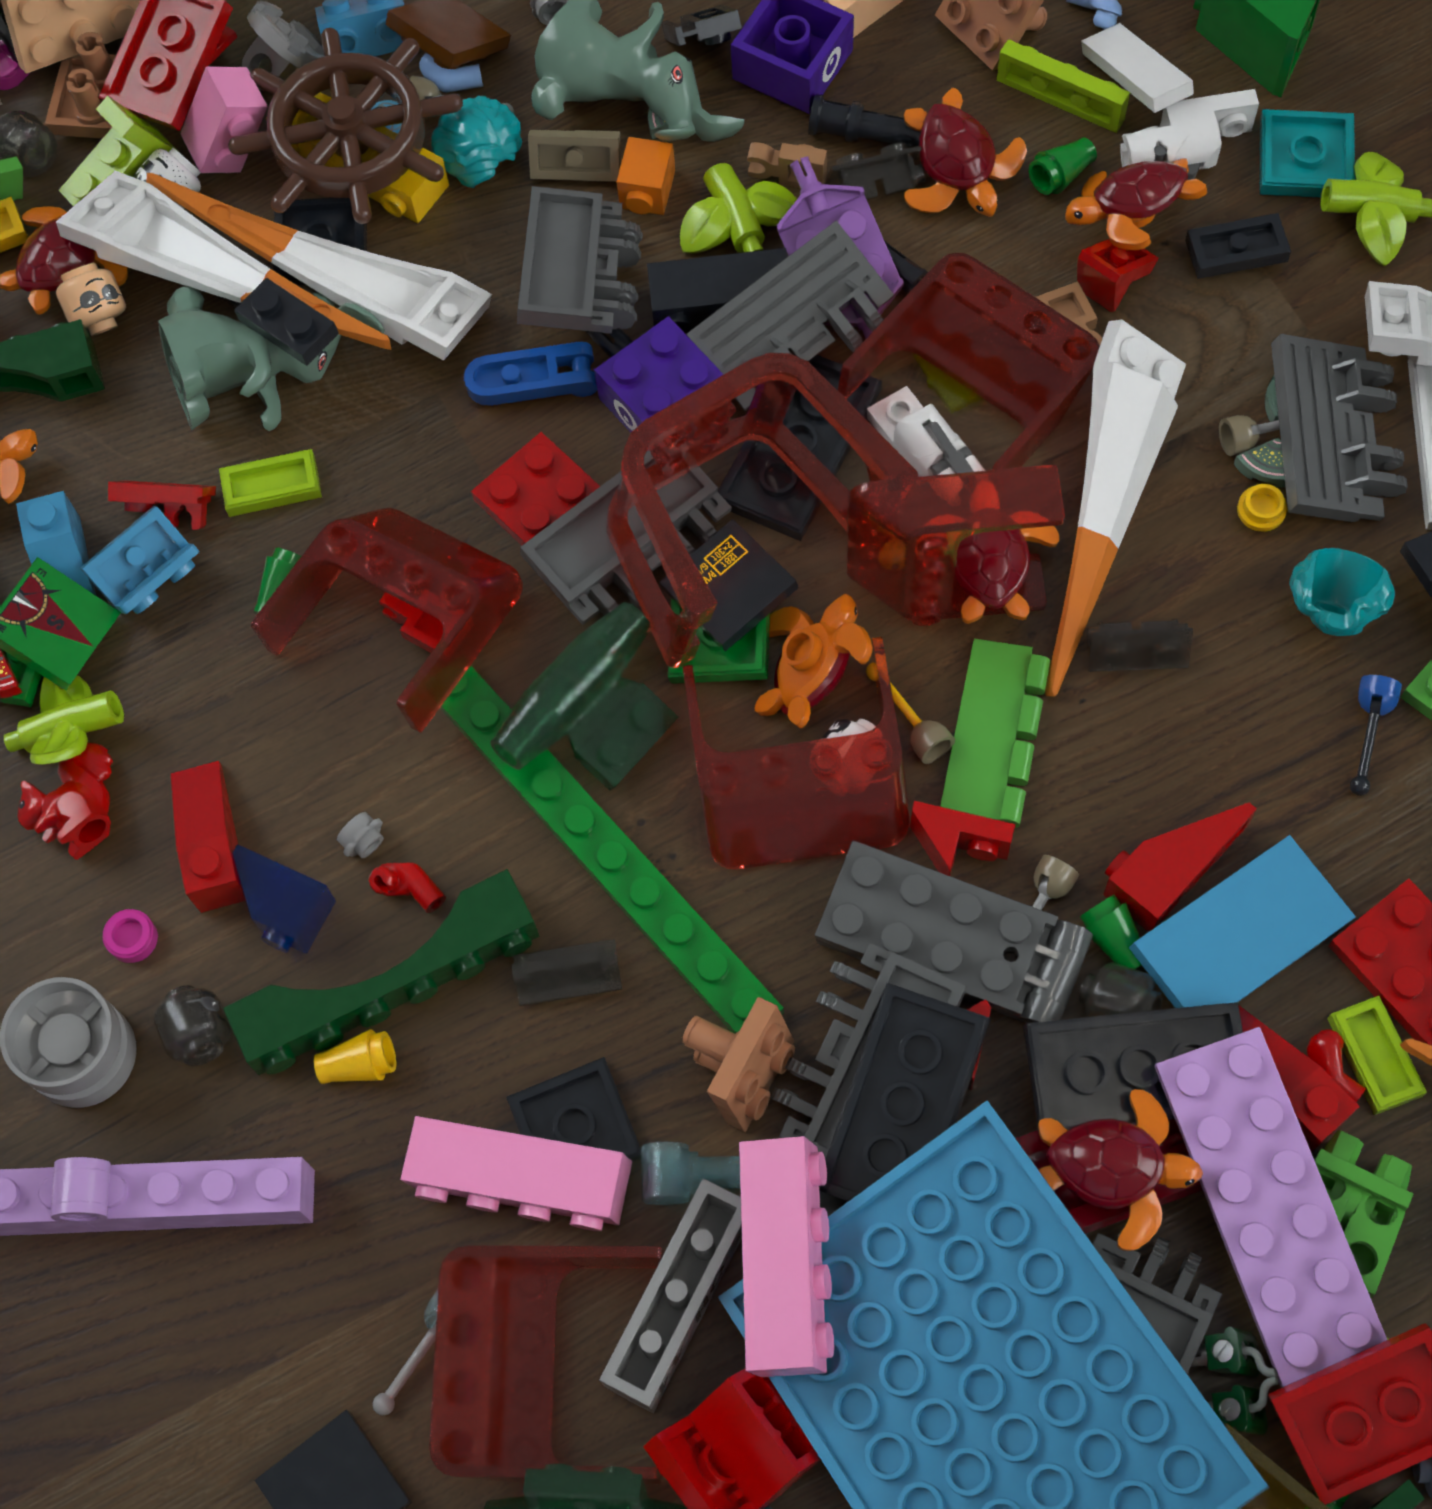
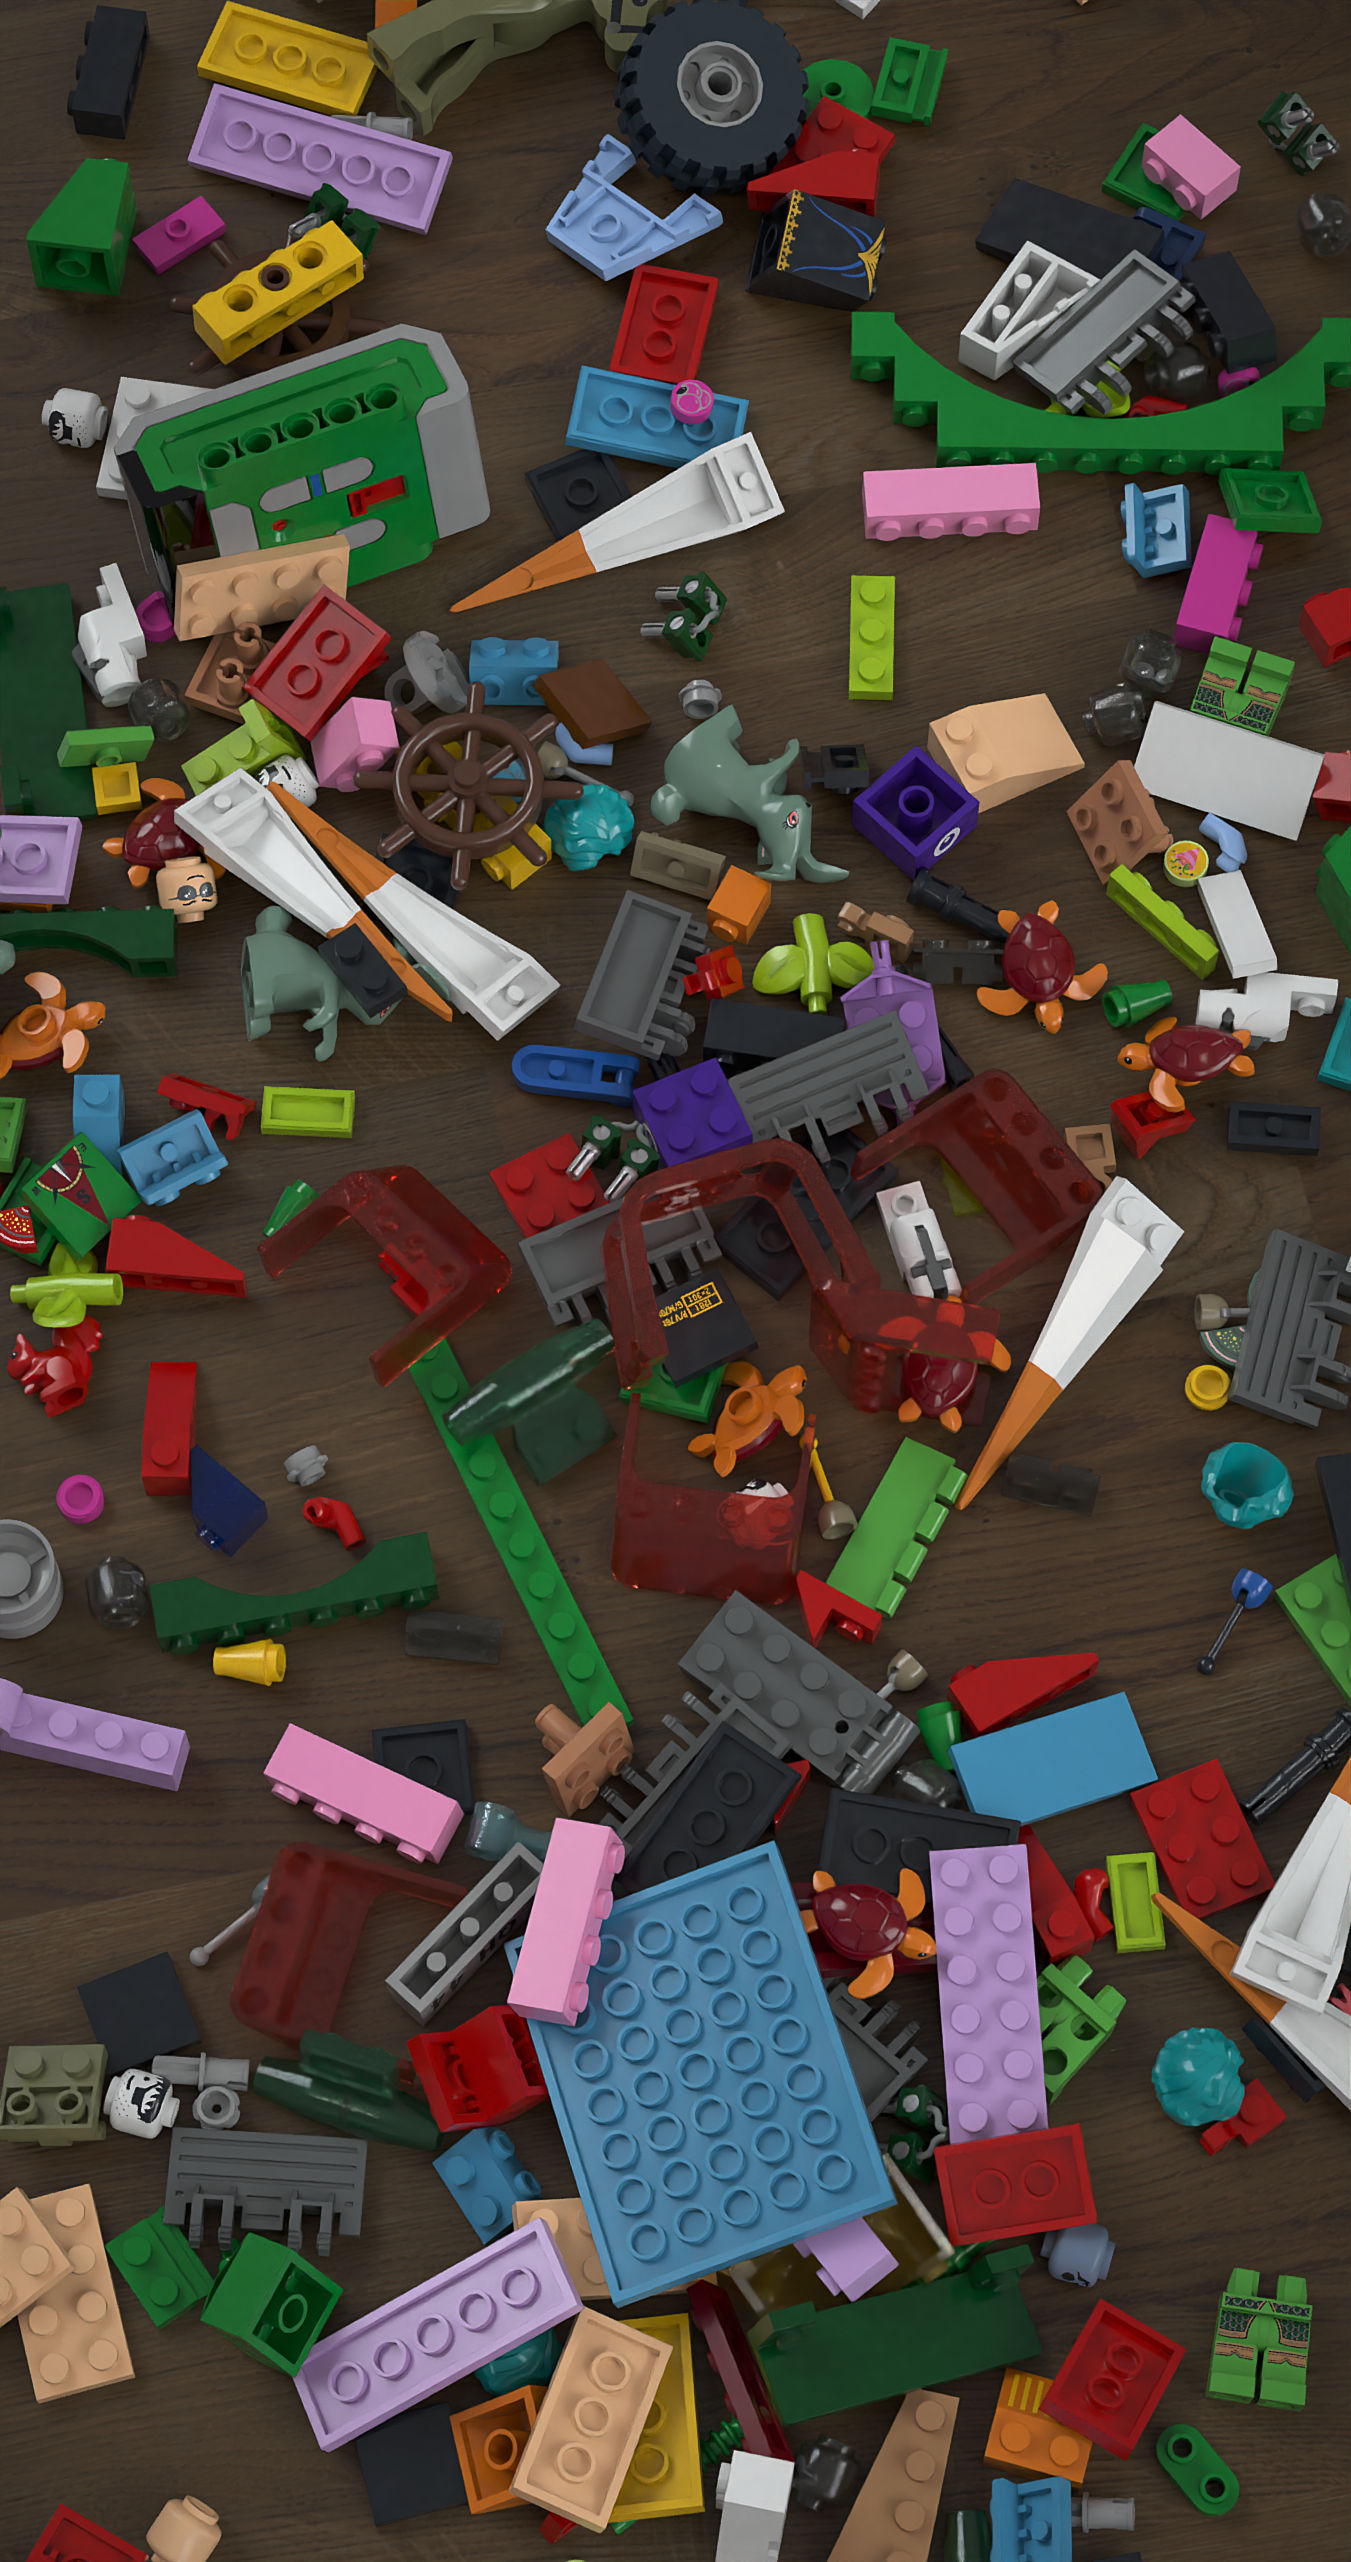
camera: 10 degrees right, 0 degrees up
(155, 665) = (160, 1259): none -> red slope
(578, 433) = (603, 1142): none -> piece
(644, 240) = (717, 974): none -> red plate
(1064, 31) = (1185, 863): none -> tile

